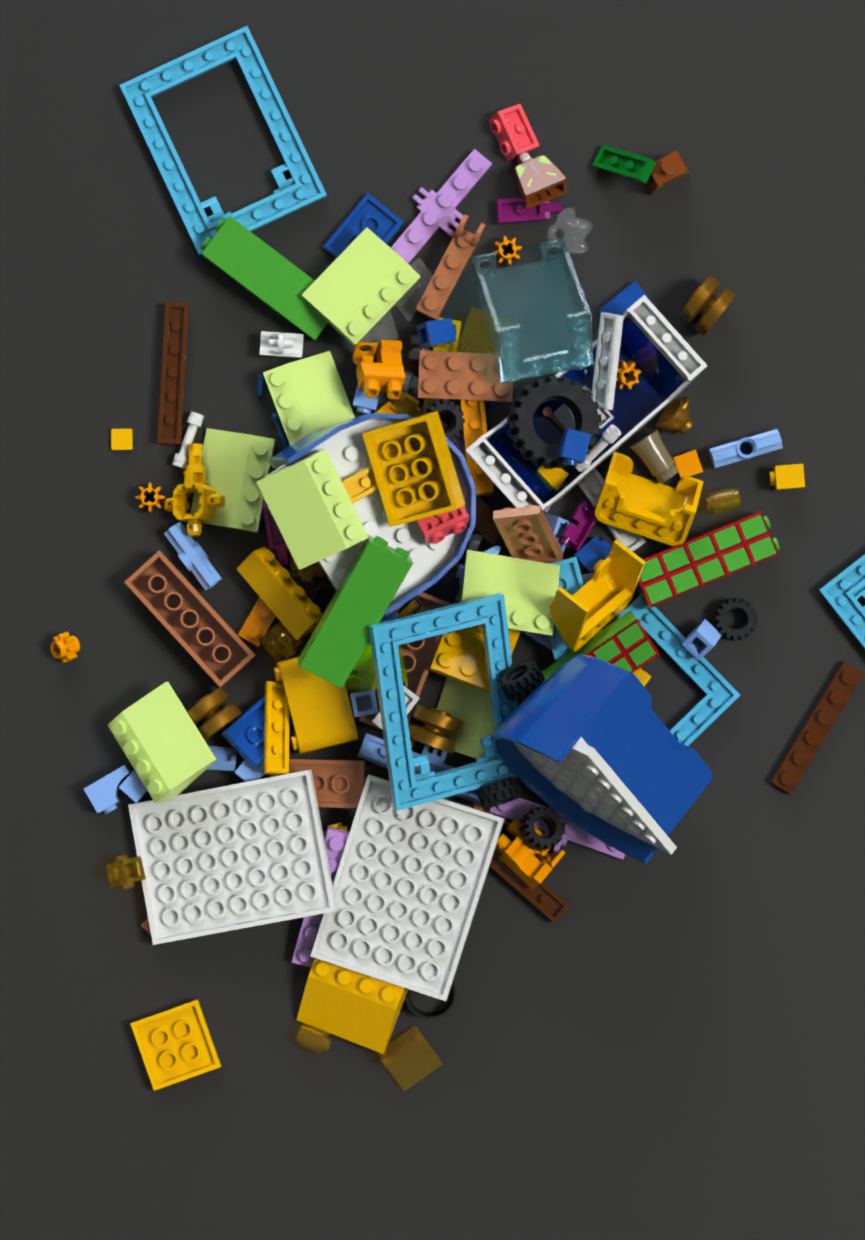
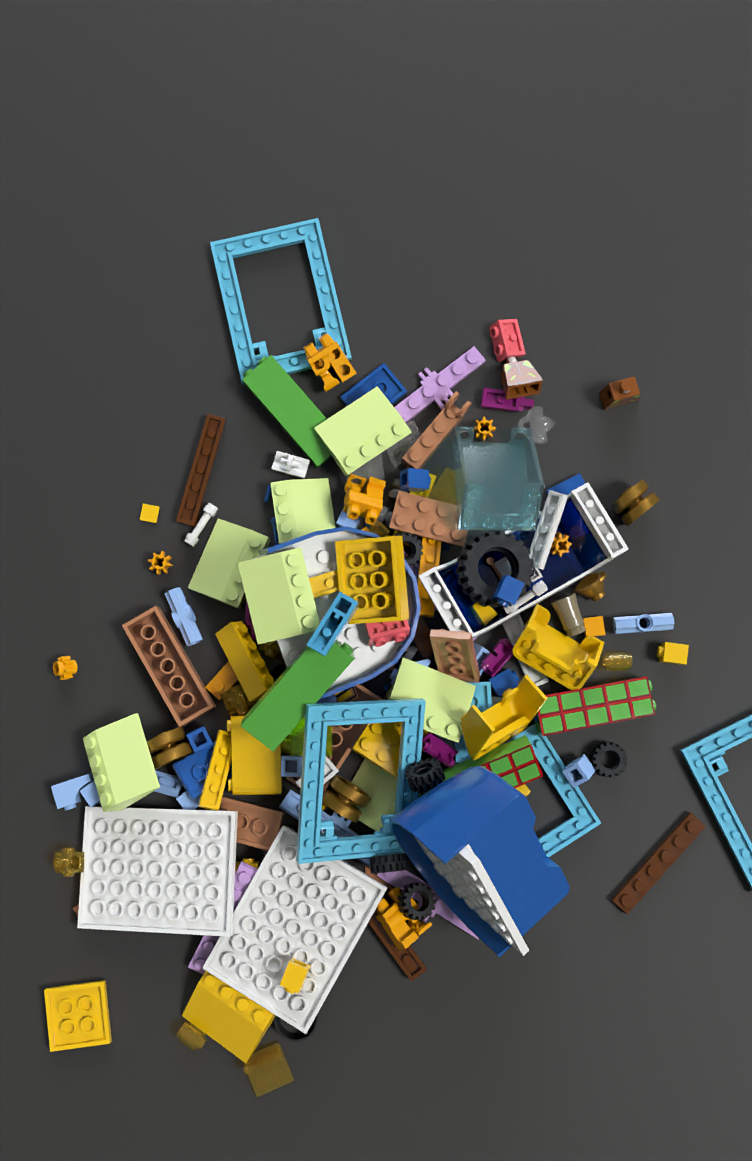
camera: 20 degrees right, 5 degrees down
(194, 482) = (197, 558): yellow piece -> none
(245, 696) = (198, 738): none -> blue brick
(295, 203) = (328, 356): none -> light orange hips
(381, 529) = (333, 624): none -> dark azure slope
(420, 938) = (295, 976): none -> yellow brick
(531, 648) = (438, 749): none -> magenta hinge
(624, 164) = (590, 379): green plate -> none

